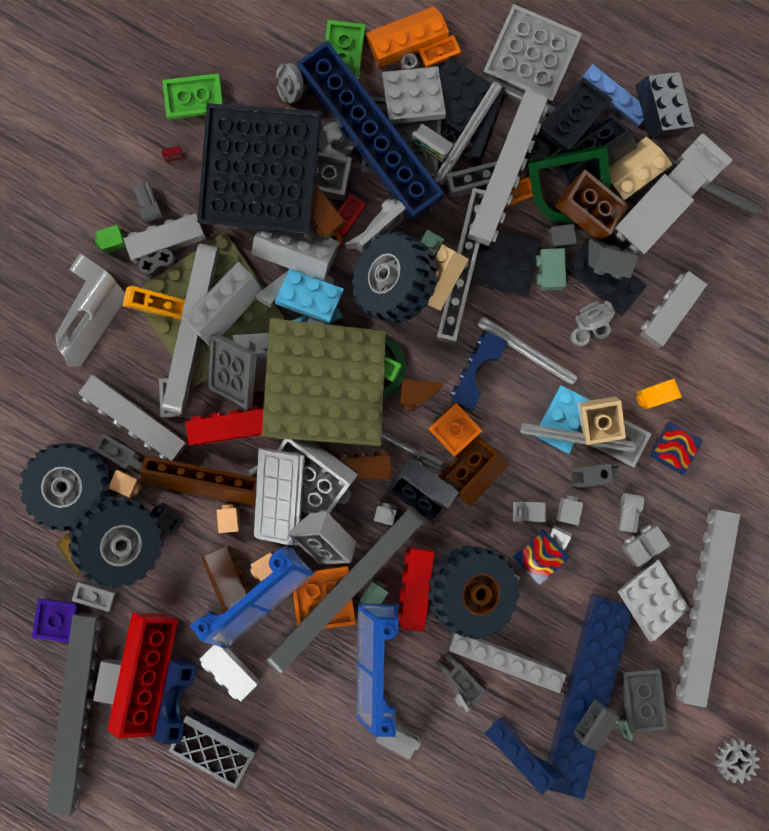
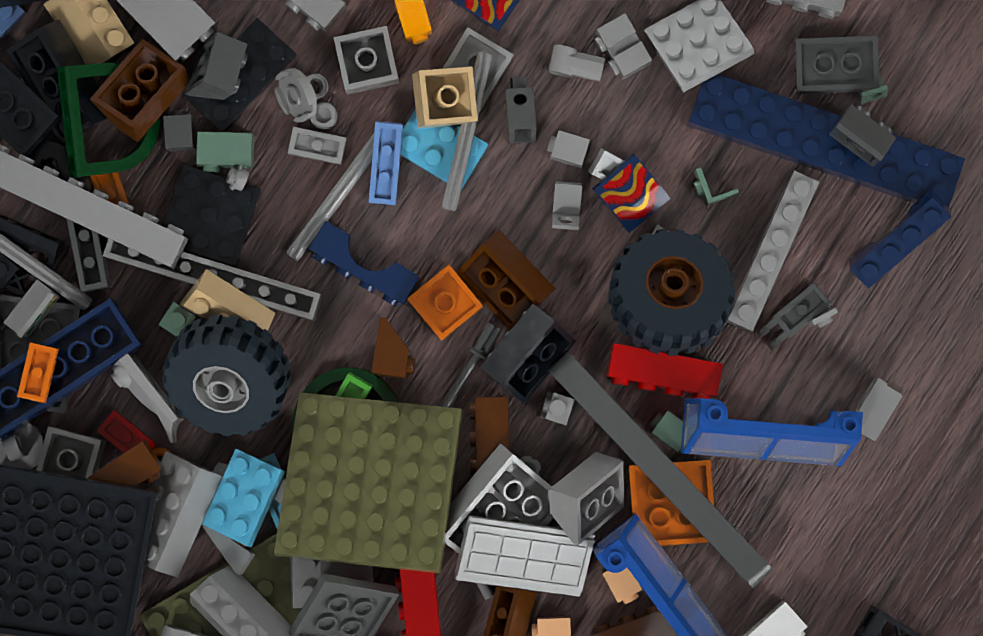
camera: 85 degrees left, 0 degrees up
(388, 145) = (38, 372): none -> orange plate
(533, 278) = (237, 178): none -> light grey plate
(547, 608) = (703, 191): none -> sand green bracket
(551, 381) = (385, 162): none -> medium blue plate
(559, 333) = (317, 145): none -> light grey plate
(623, 363) = (366, 60): none -> light grey brick

